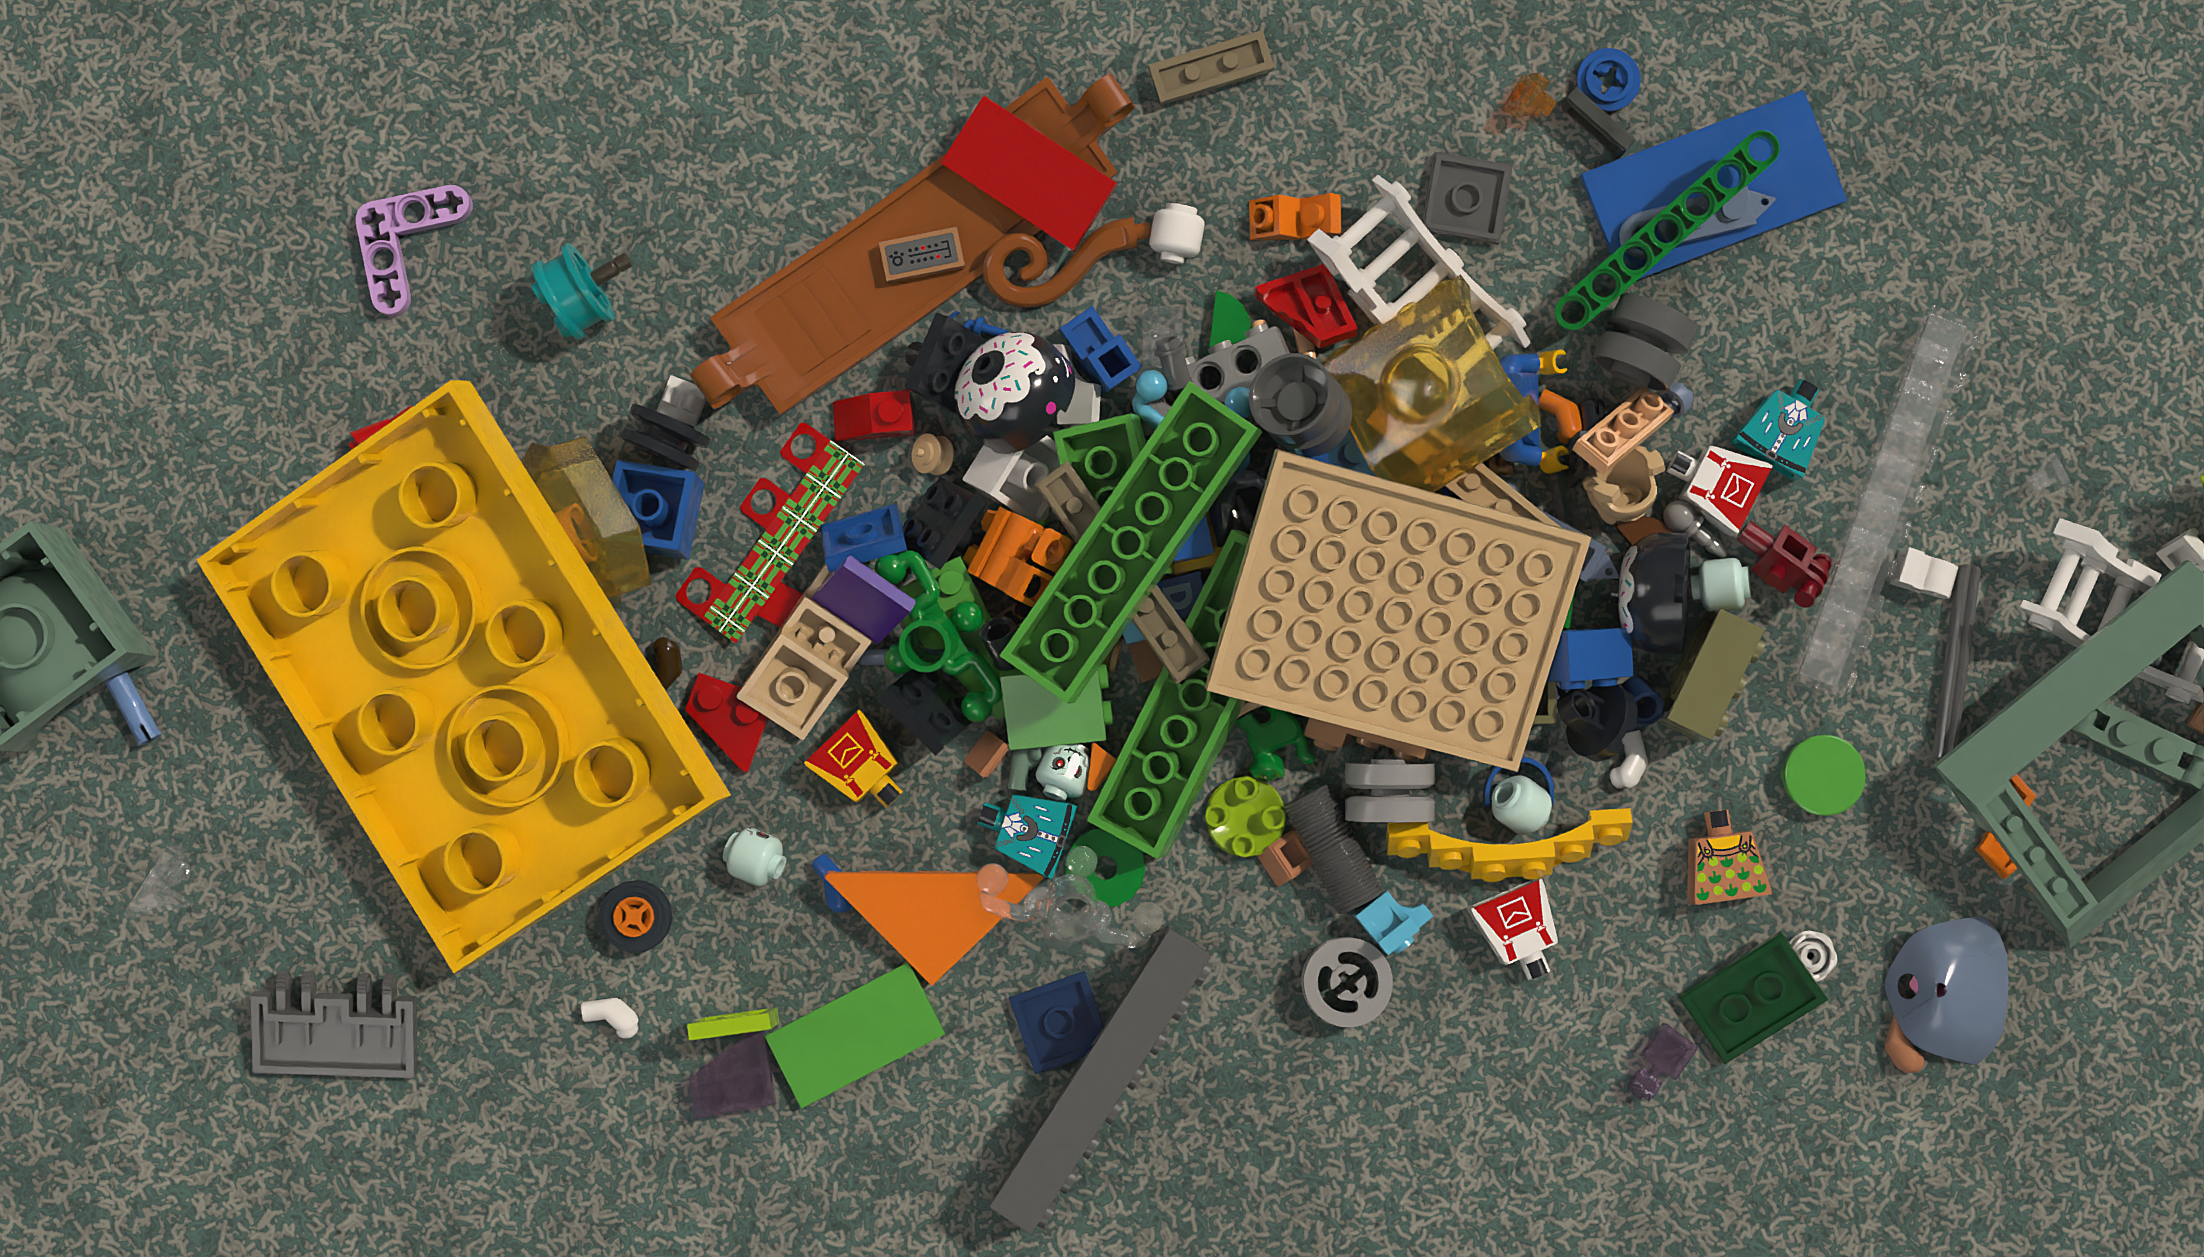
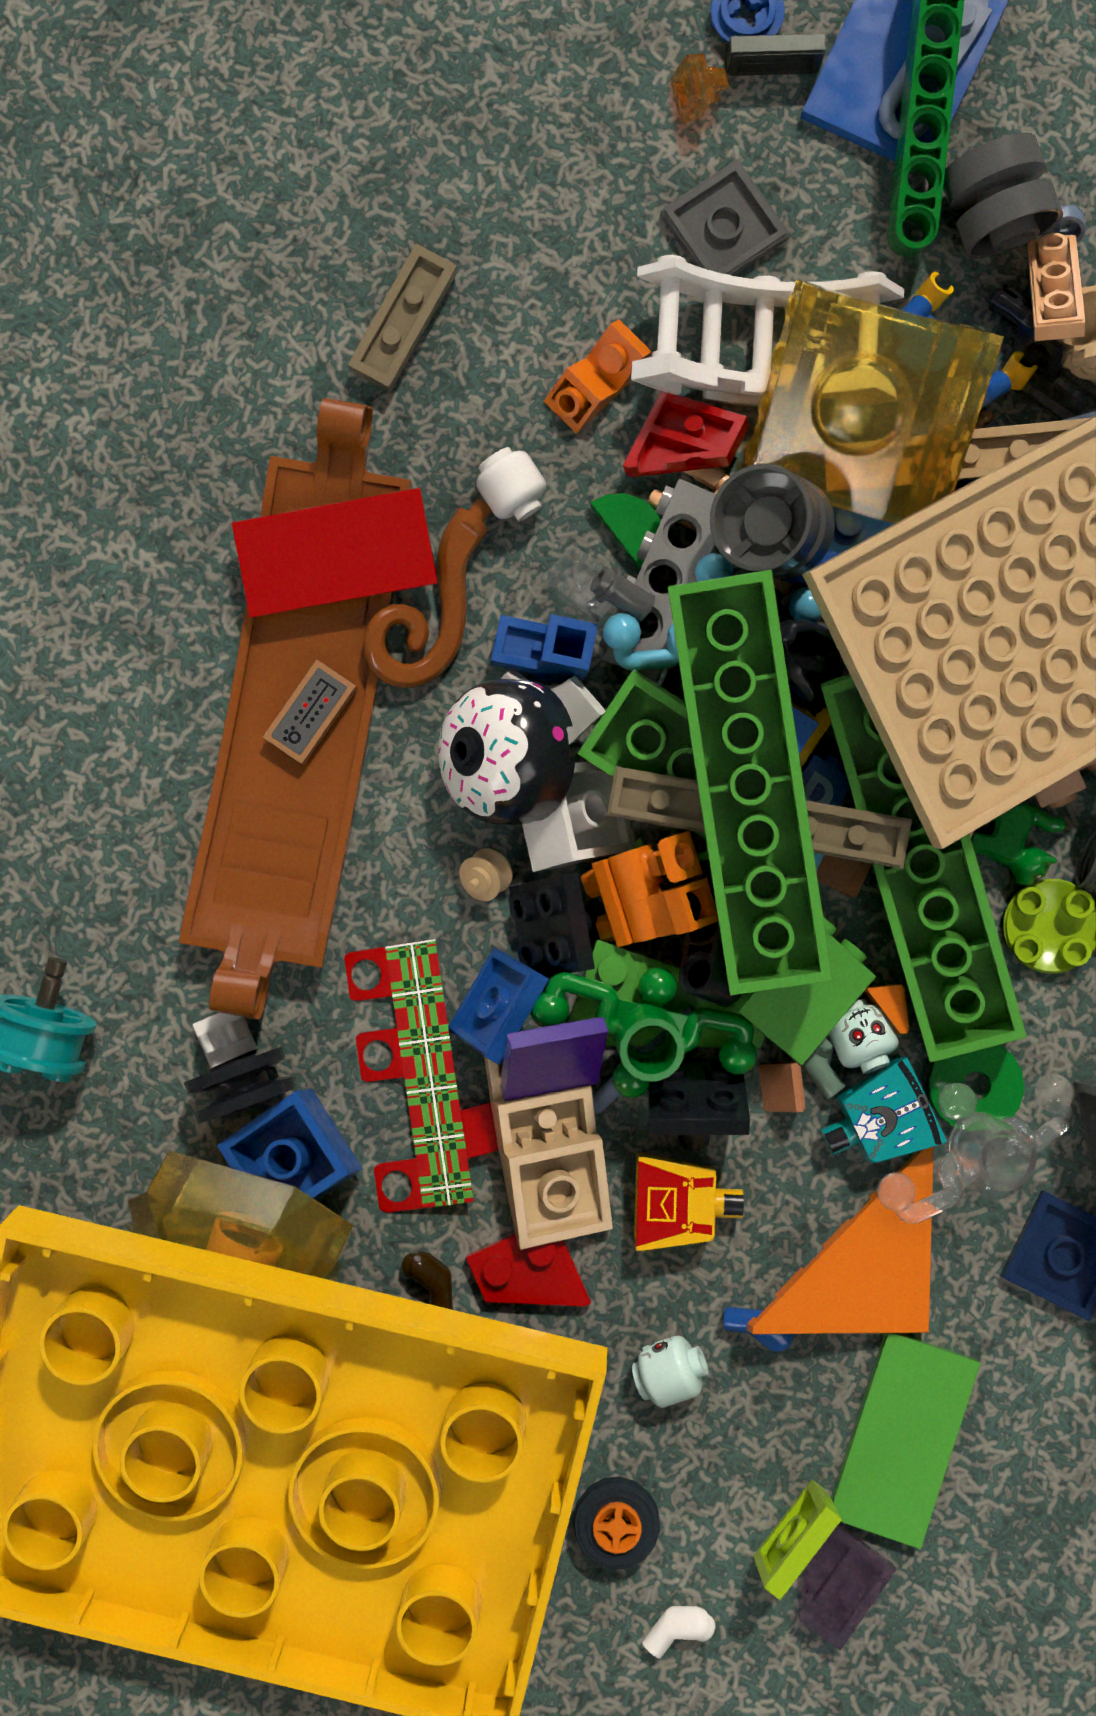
camera: 45 degrees left, 0 degrees up
(874, 416) = (403, 890): red slope -> none
(940, 360) = (416, 786): black plate -> none
(980, 326) = (417, 727): blue hand -> none
(1566, 414) = (992, 322): orange arm -> none

